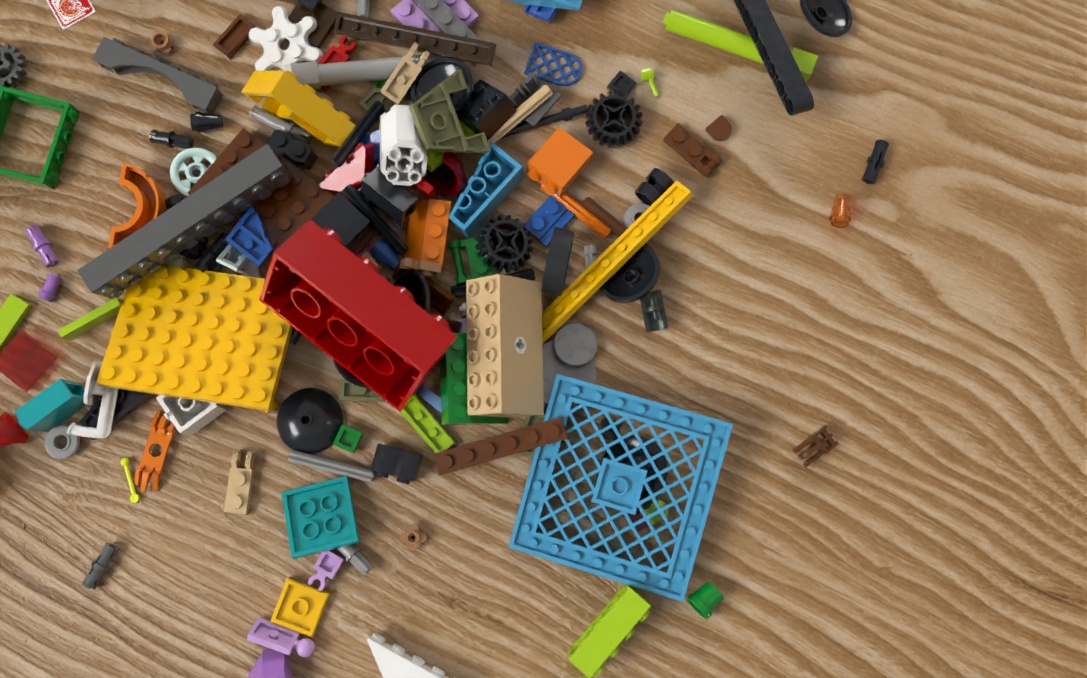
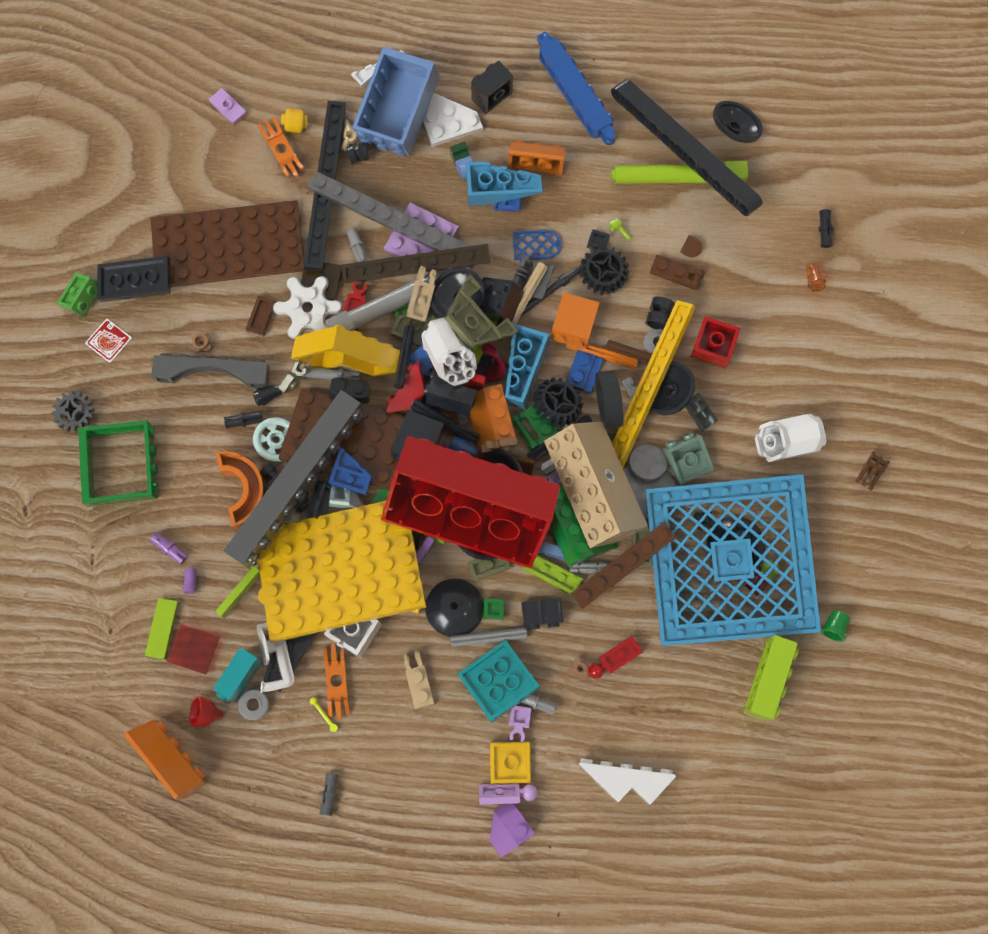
camera: 25 degrees left, 5 degrees down
(236, 116) = (292, 379): none -> olive plate
(297, 351) = (425, 549): none -> medium lavender tile
(454, 541) = (615, 658): none -> red plate
(466, 432) = (587, 567): none -> light grey axle
(620, 356) = (688, 457): none -> sand green plate
(701, 241) = (715, 342): none -> red brick
(740, 376) = (790, 437): none -> white brick

